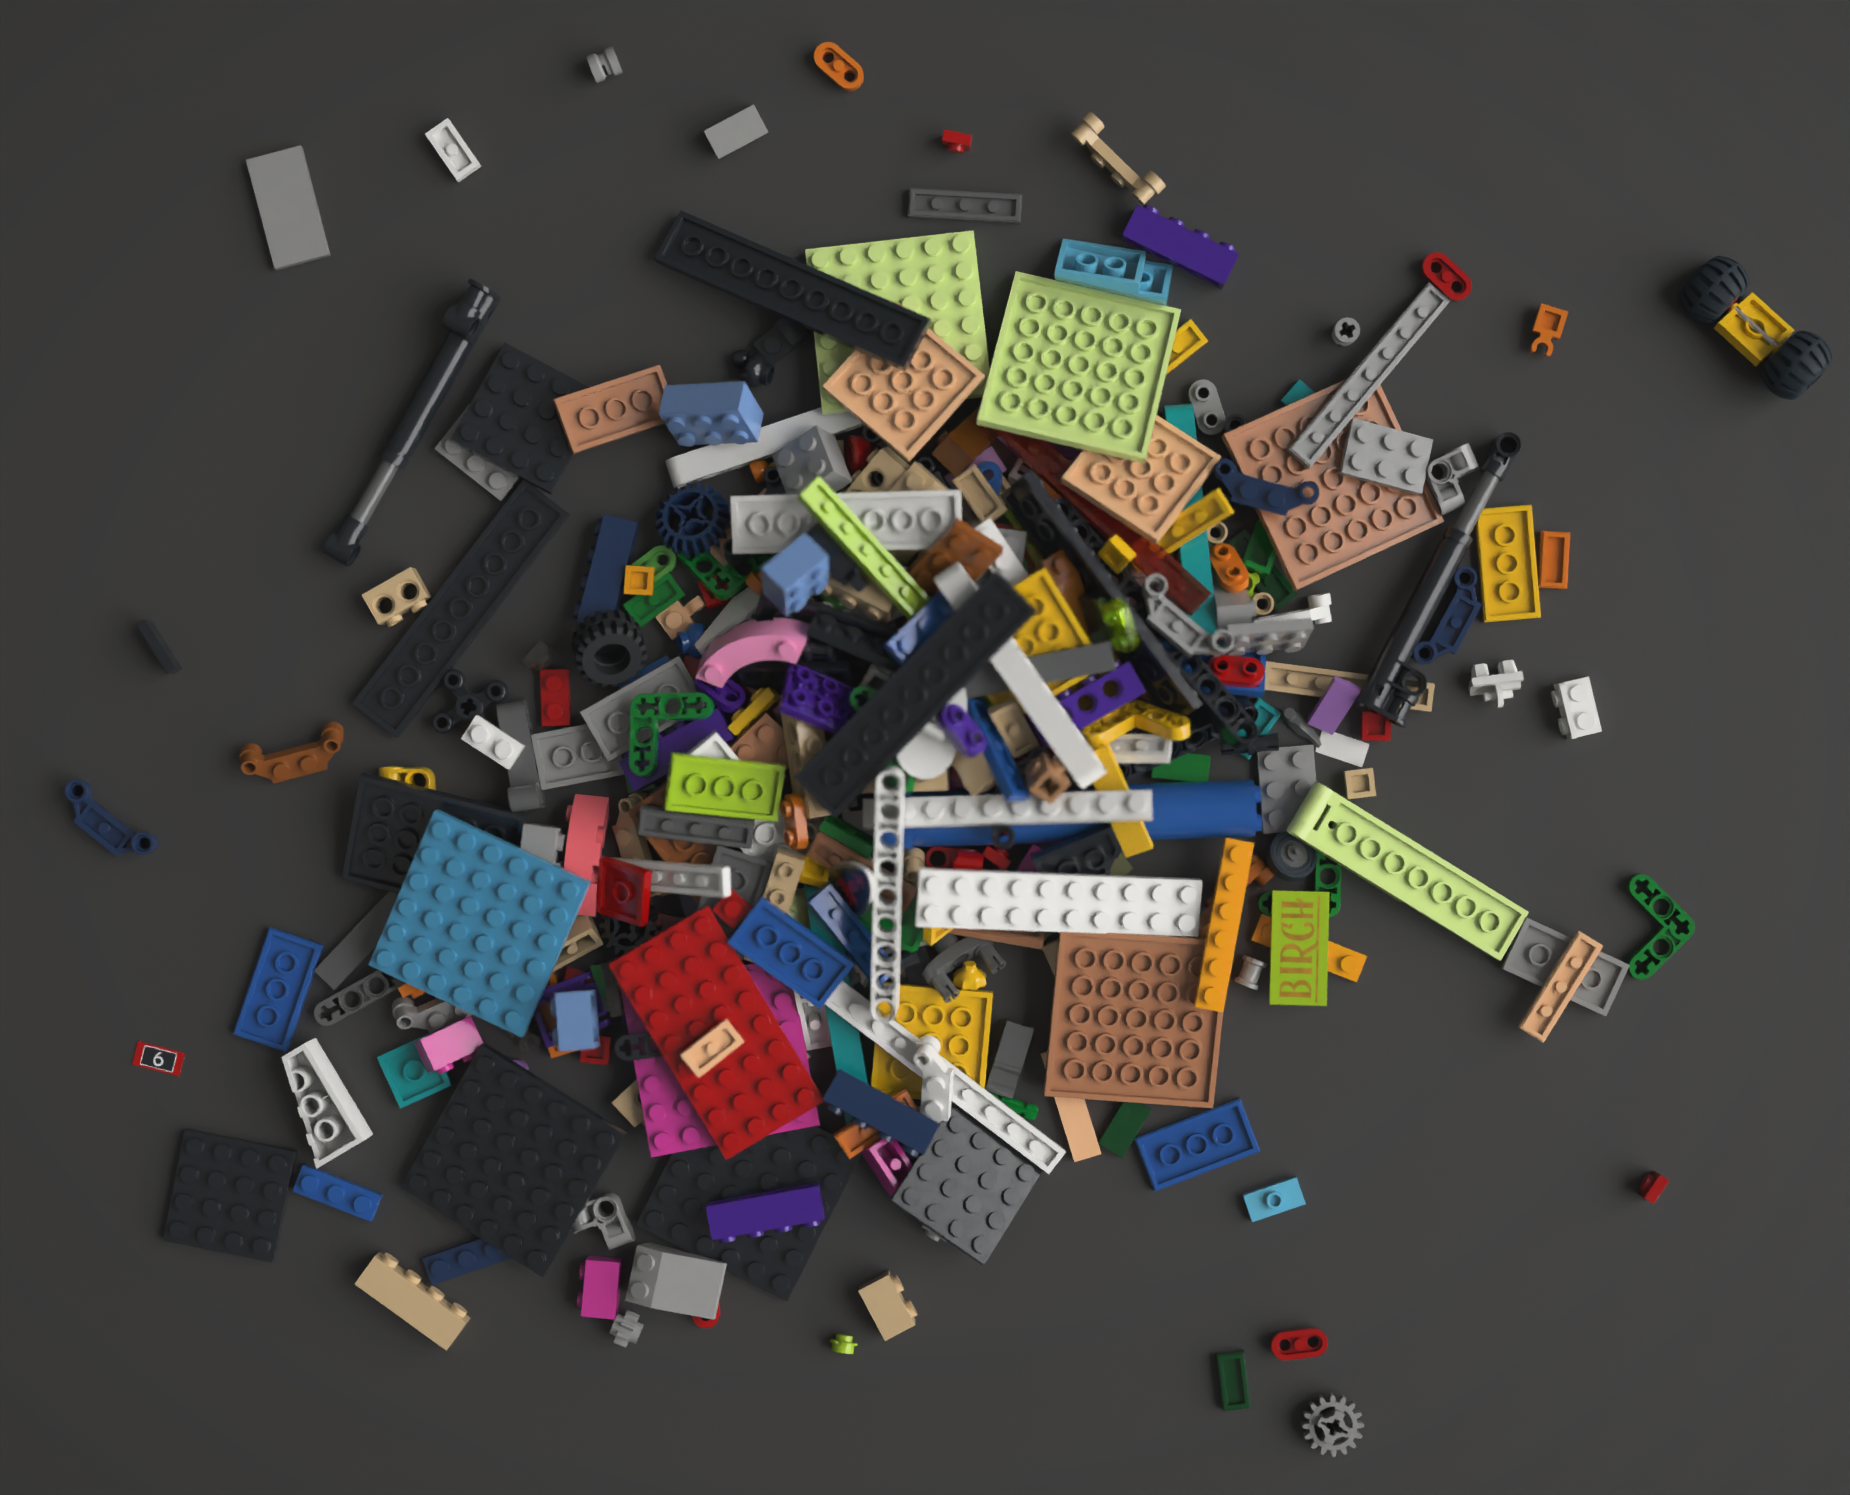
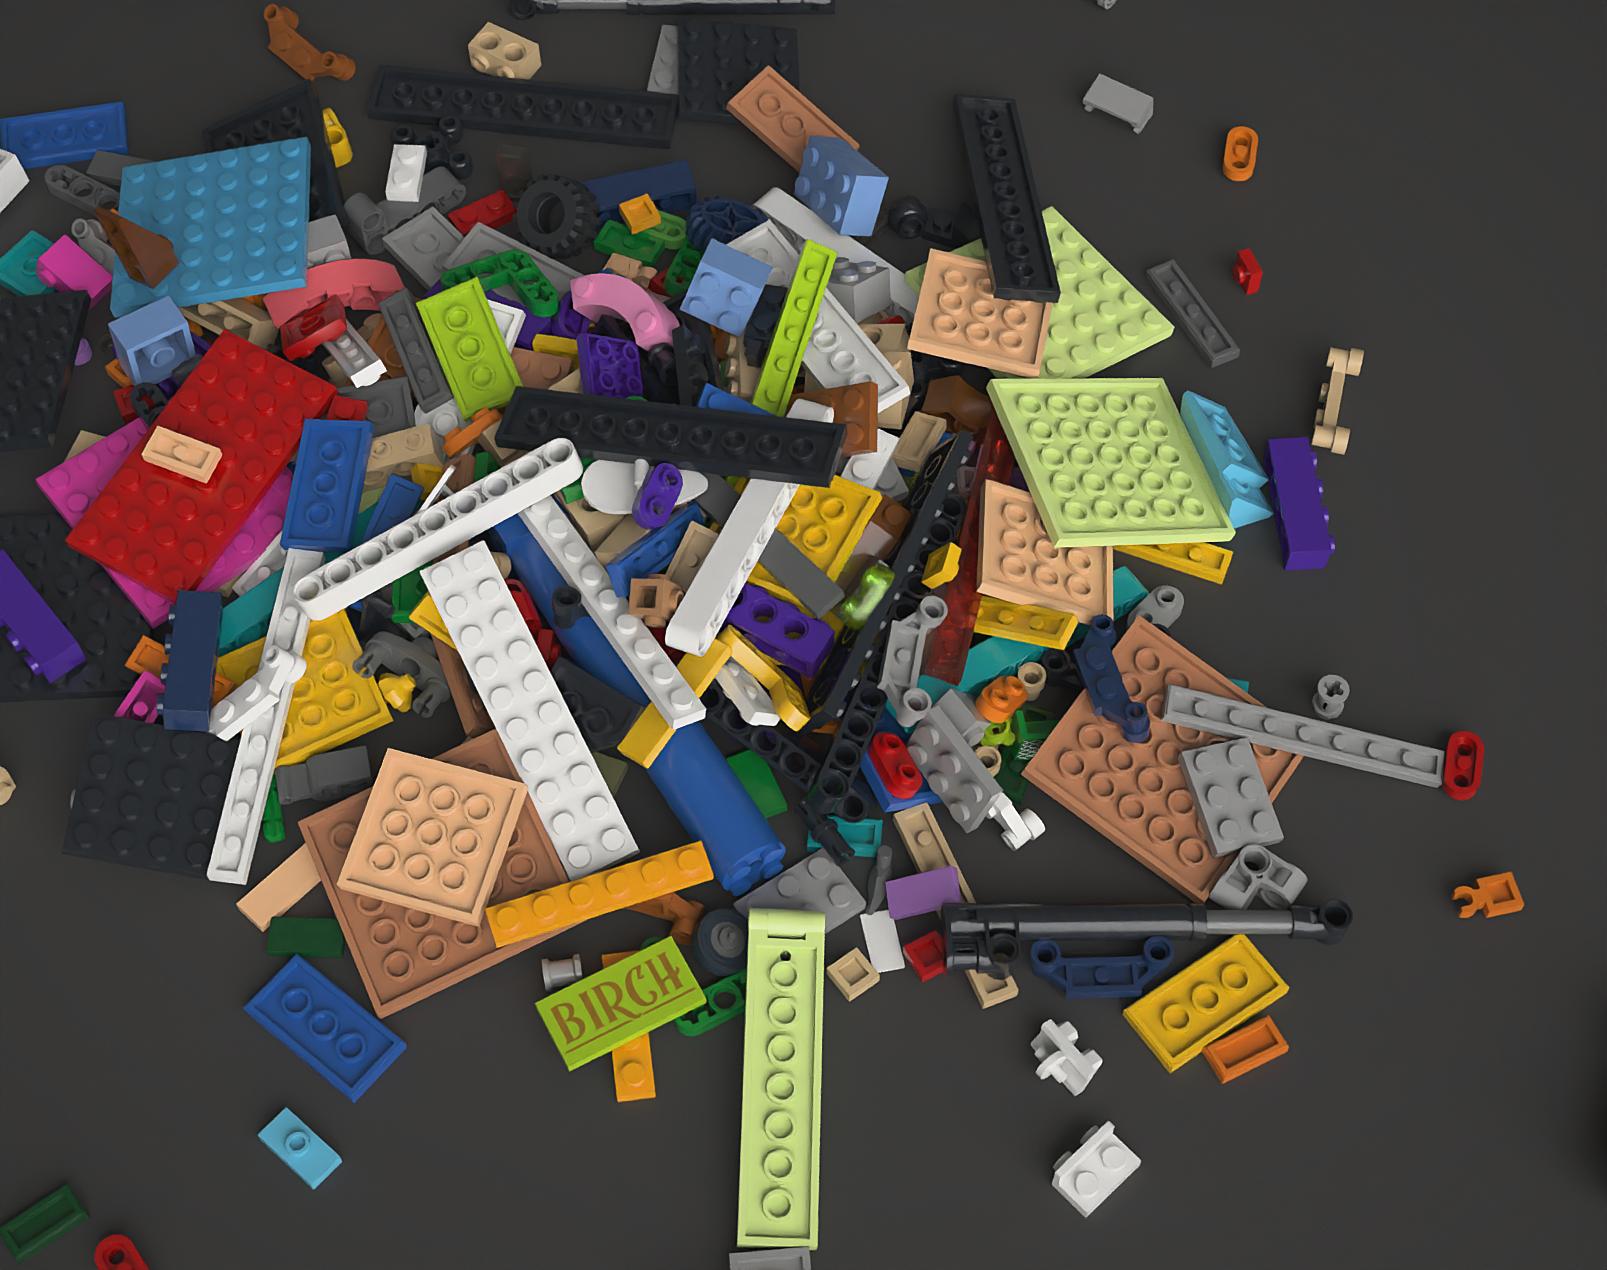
camera: 60 degrees right, 30 degrees down
(499, 995) = (142, 253): none -> reddish brown slope
(1118, 1013) = (433, 837): none -> light nougat plate

